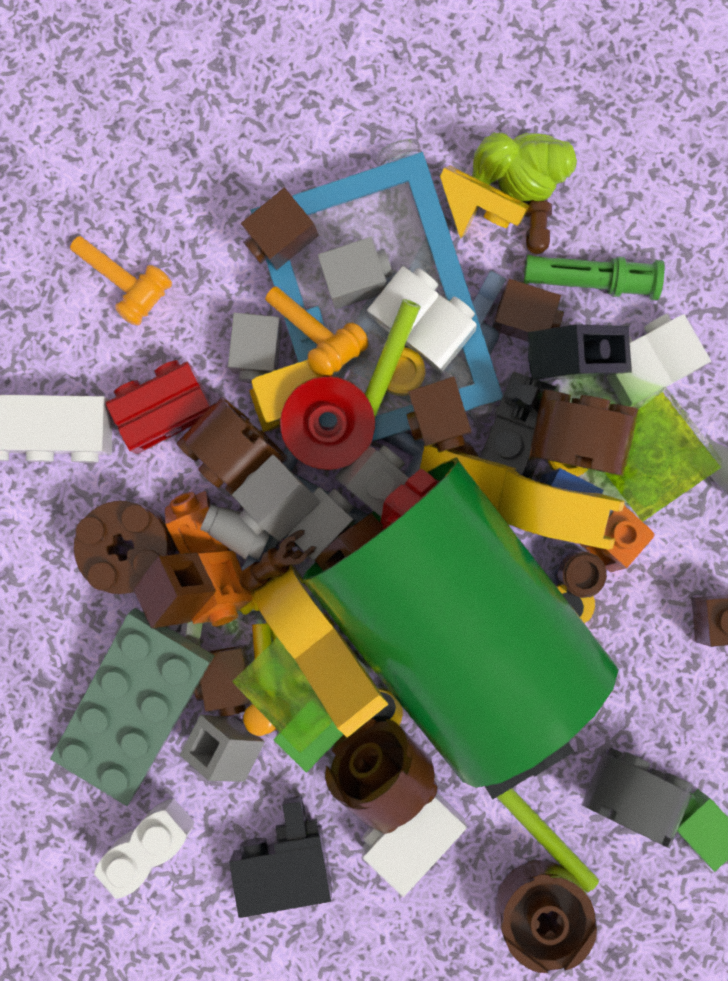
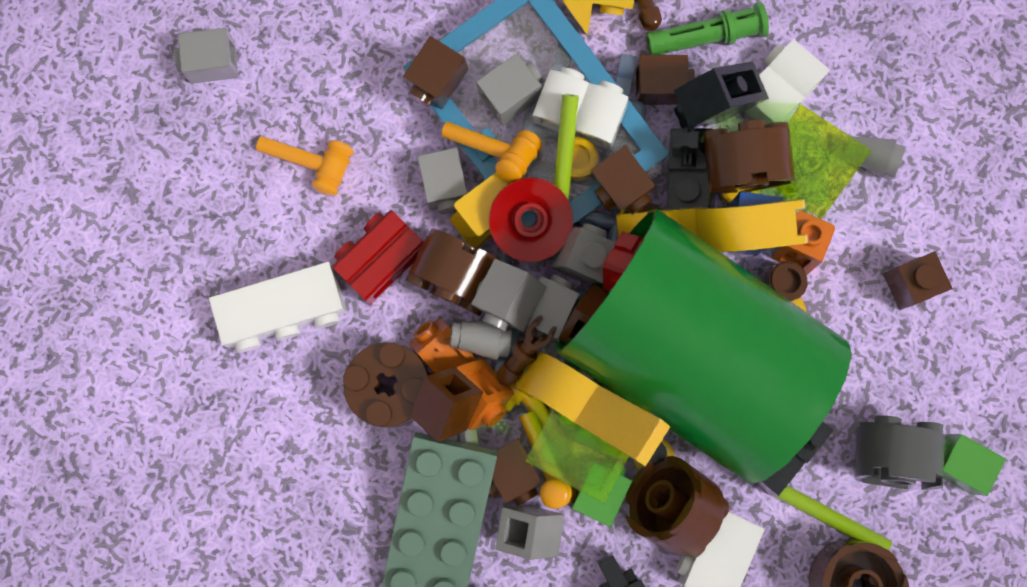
camera: 25 degrees left, 5 degrees down
(47, 130) = (206, 55): none -> light grey brick

